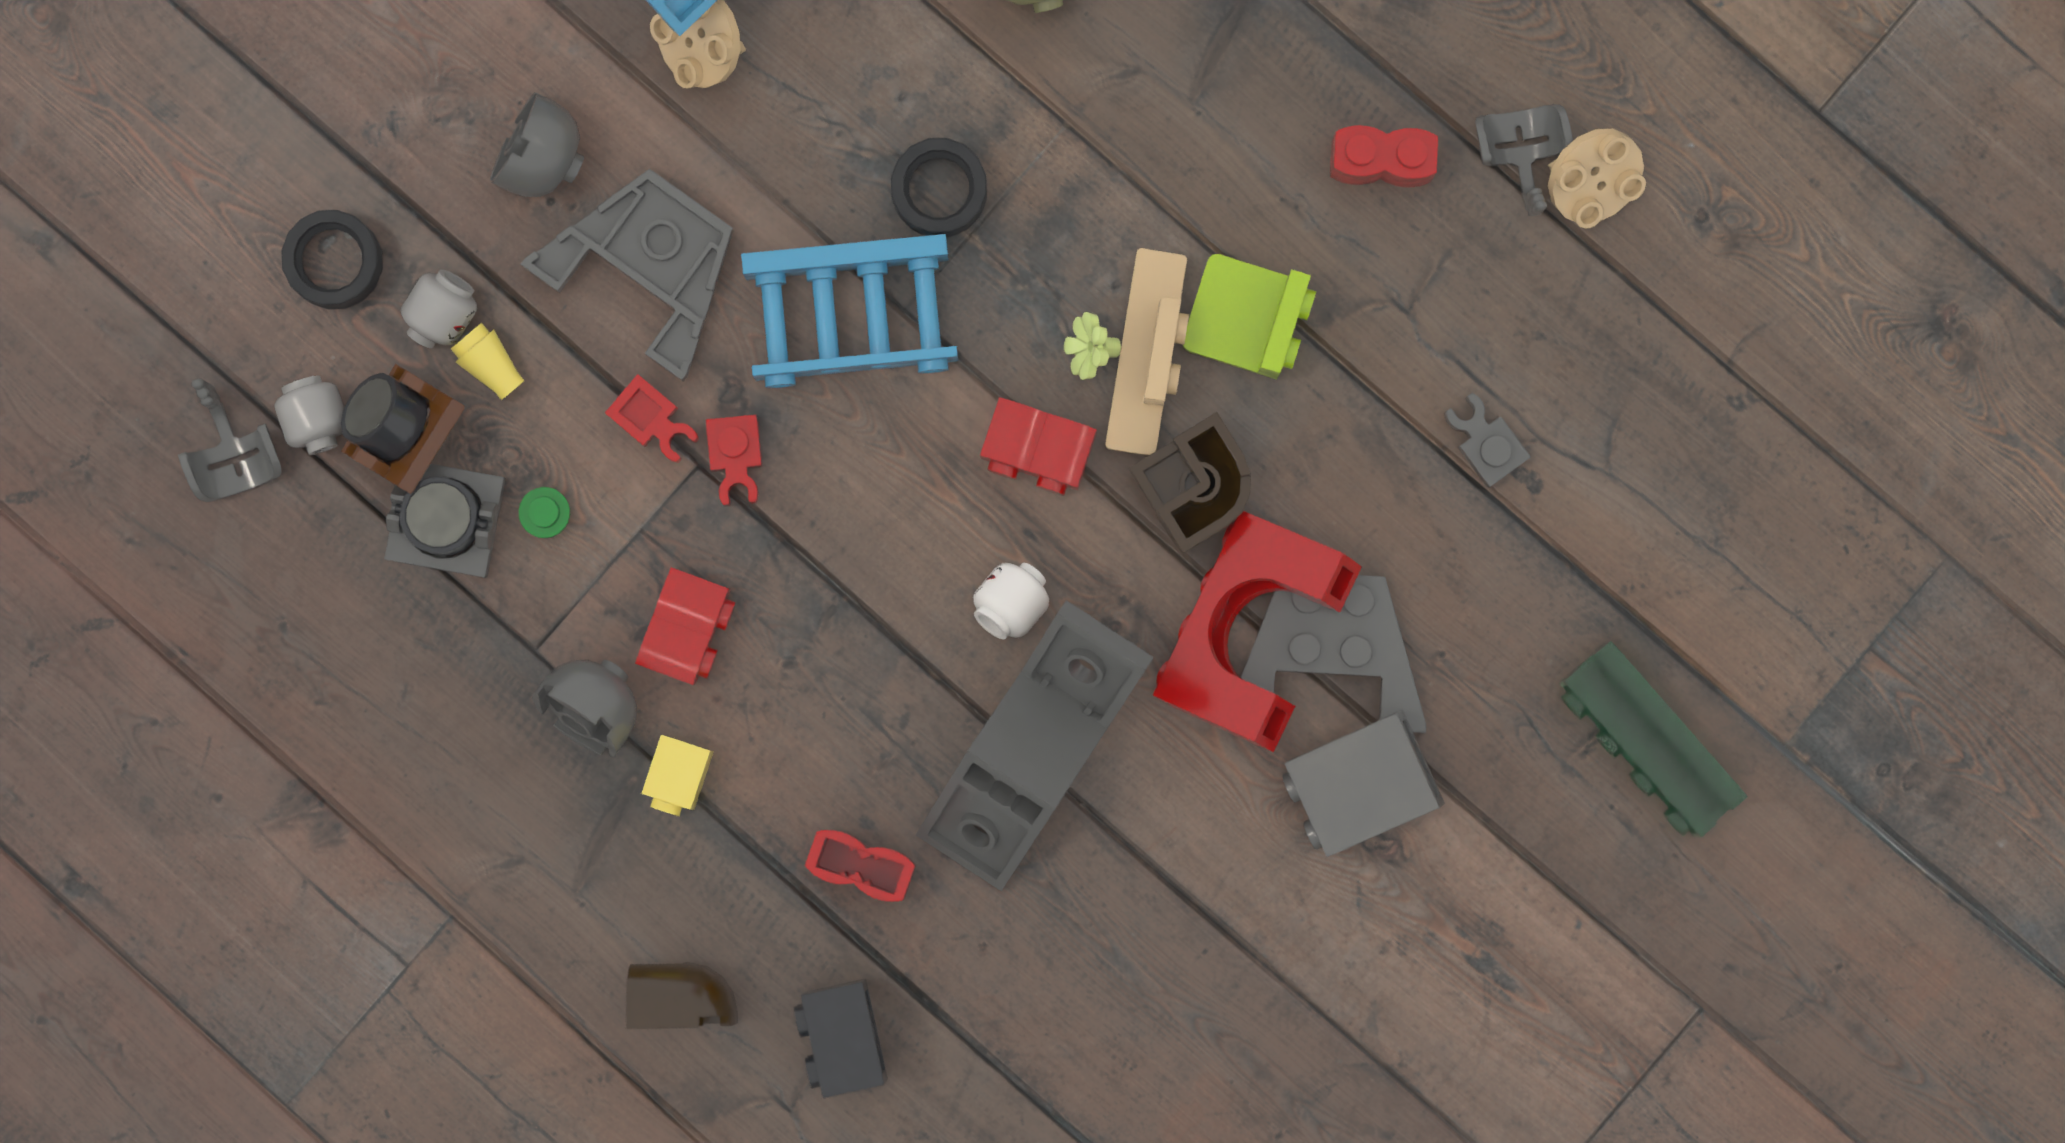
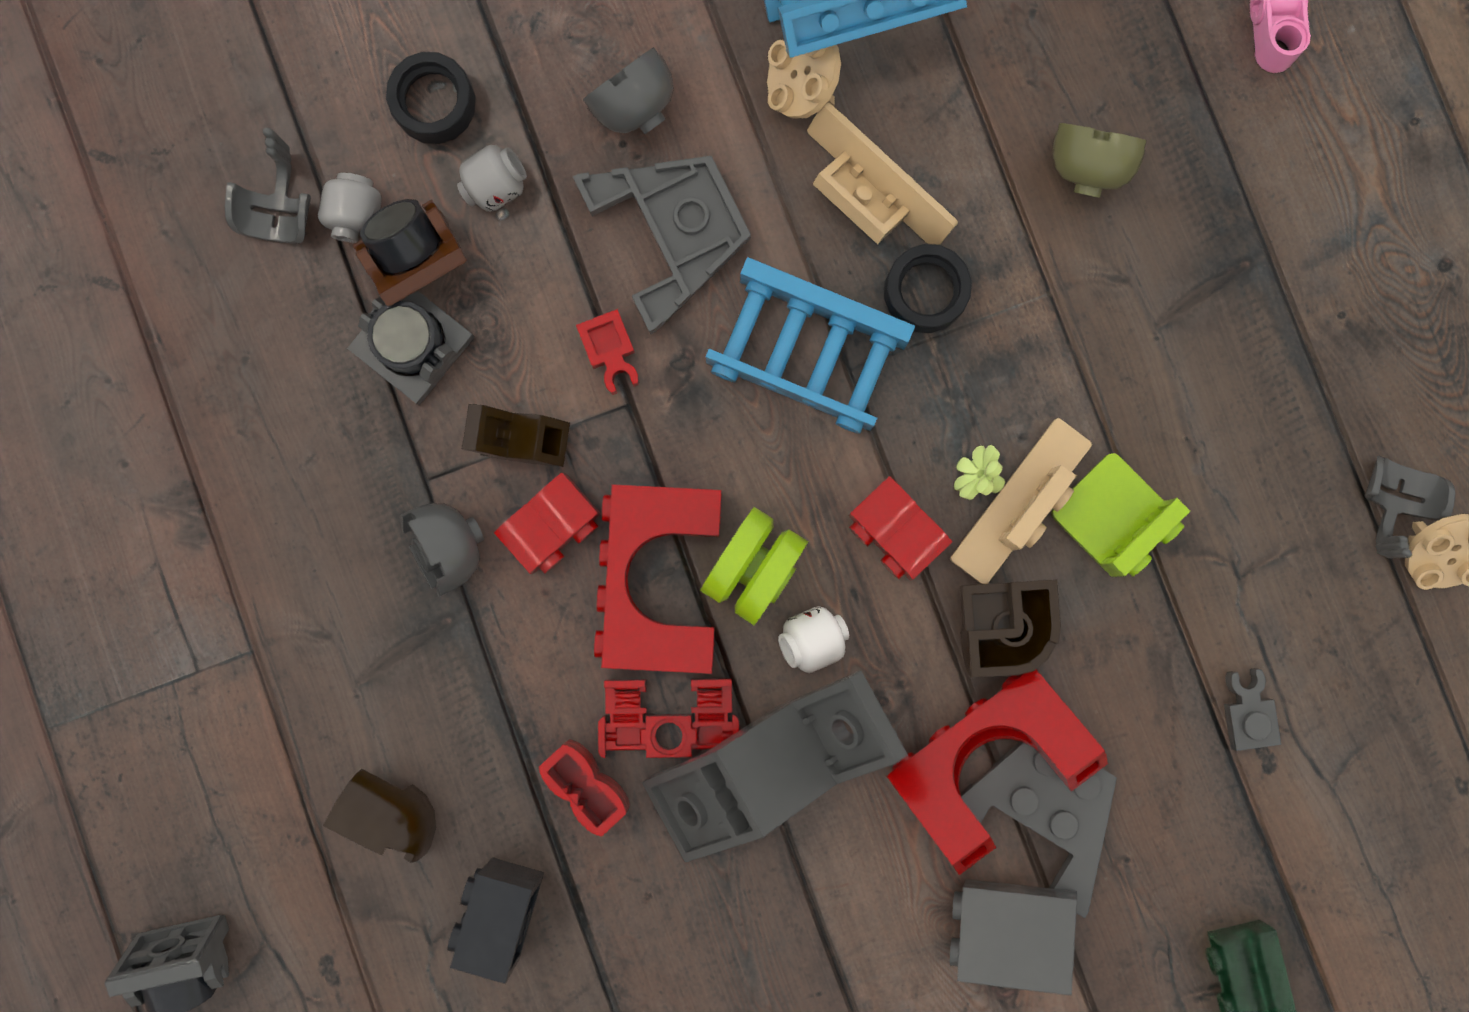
camera: 30 degrees right, 0 degrees up
(487, 361) = (507, 237): light yellow cone -> none
(544, 512) = (489, 378): green plate -> none
(606, 555) = (515, 436): none -> dark brown brick
(676, 775) = (480, 636): light yellow brick -> none
(734, 449) = (661, 406): red plate -> none
(770, 574) = (630, 636): none -> red arch
(827, 114) = (871, 185): none -> tan bracket
(879, 791) = (630, 732): none -> red piece
(910, 557) = (754, 566): none -> lime wheel
(1368, 154) = (1295, 452): red brick -> none

